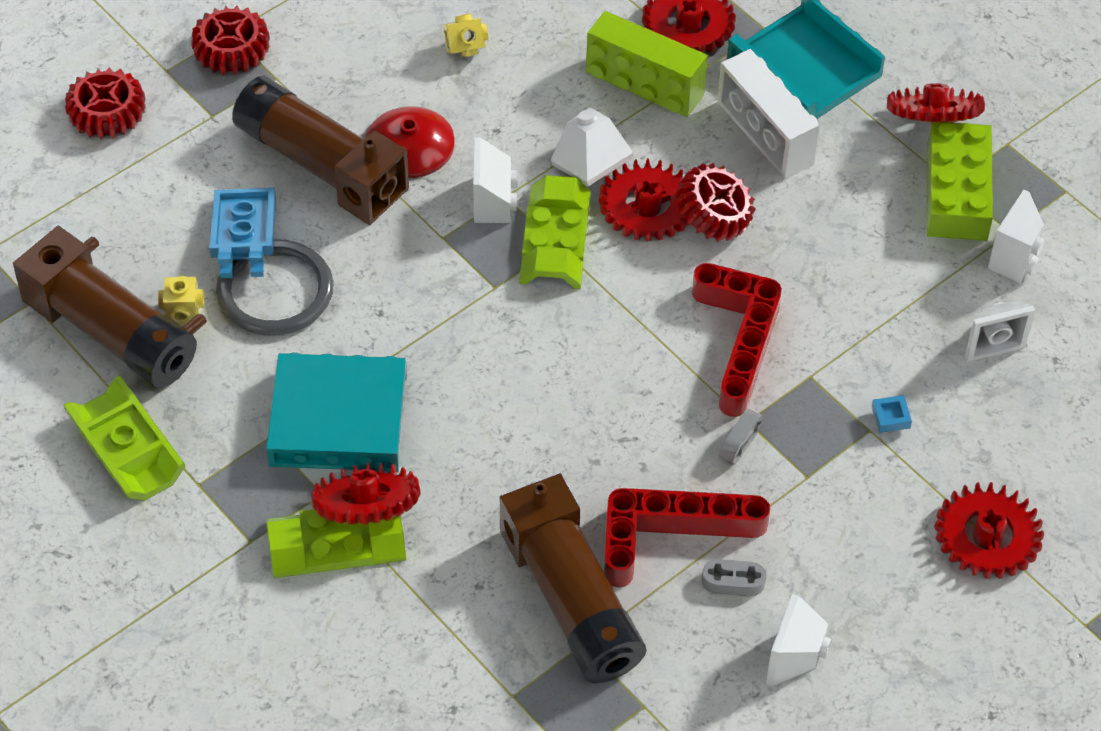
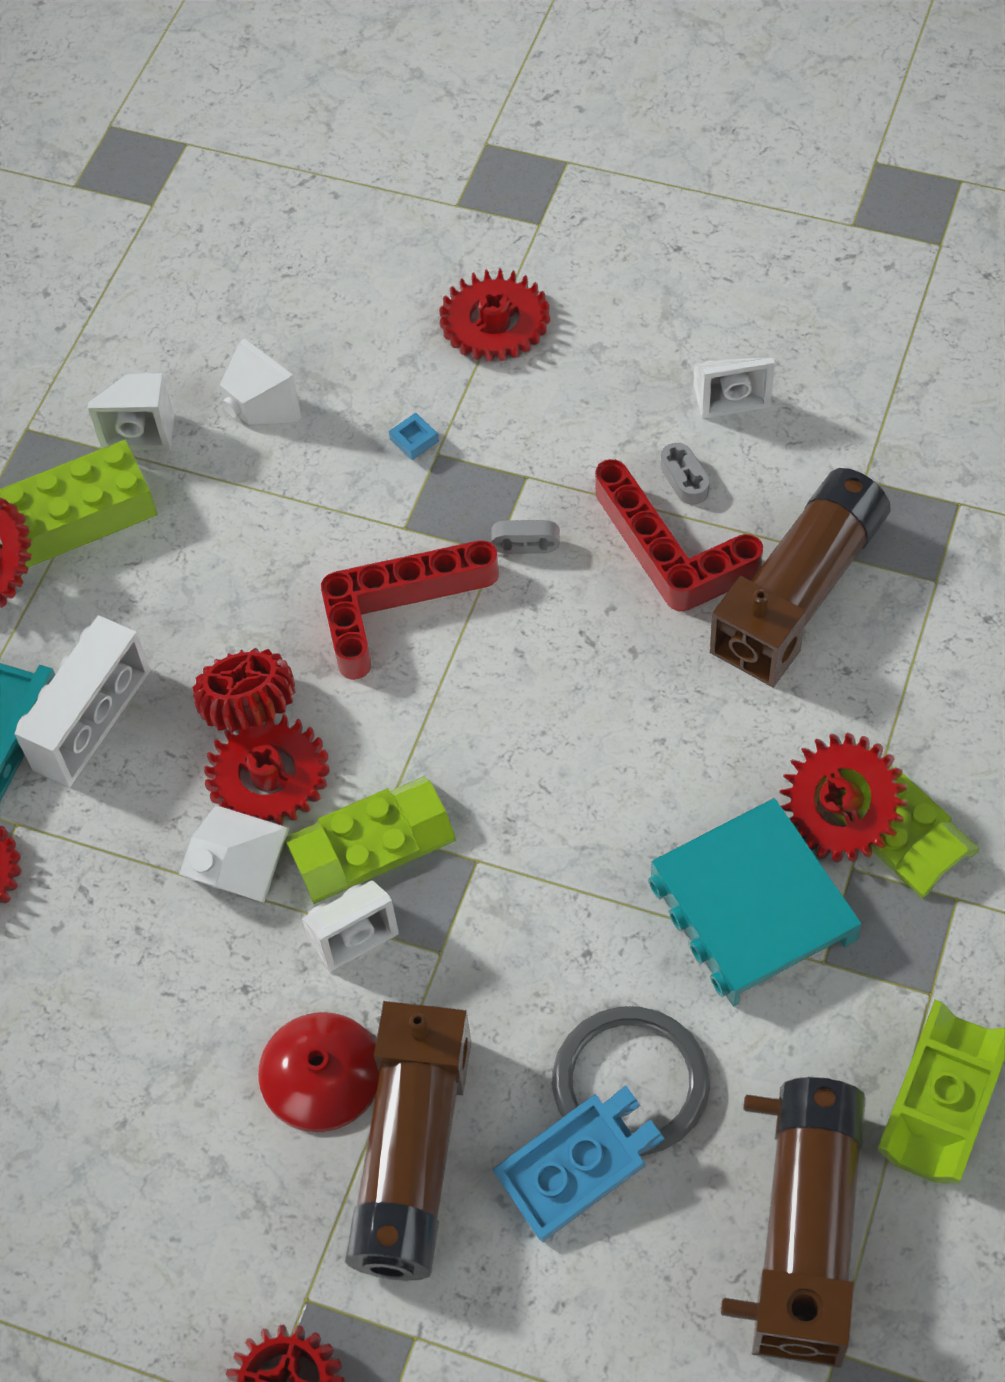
camera: 115 degrees left, 5 degrees up
(181, 298) = (724, 1168): light yellow brick -> none
(455, 32) = (125, 1092): light yellow brick -> none
(646, 63) = (72, 858): lime brick -> none

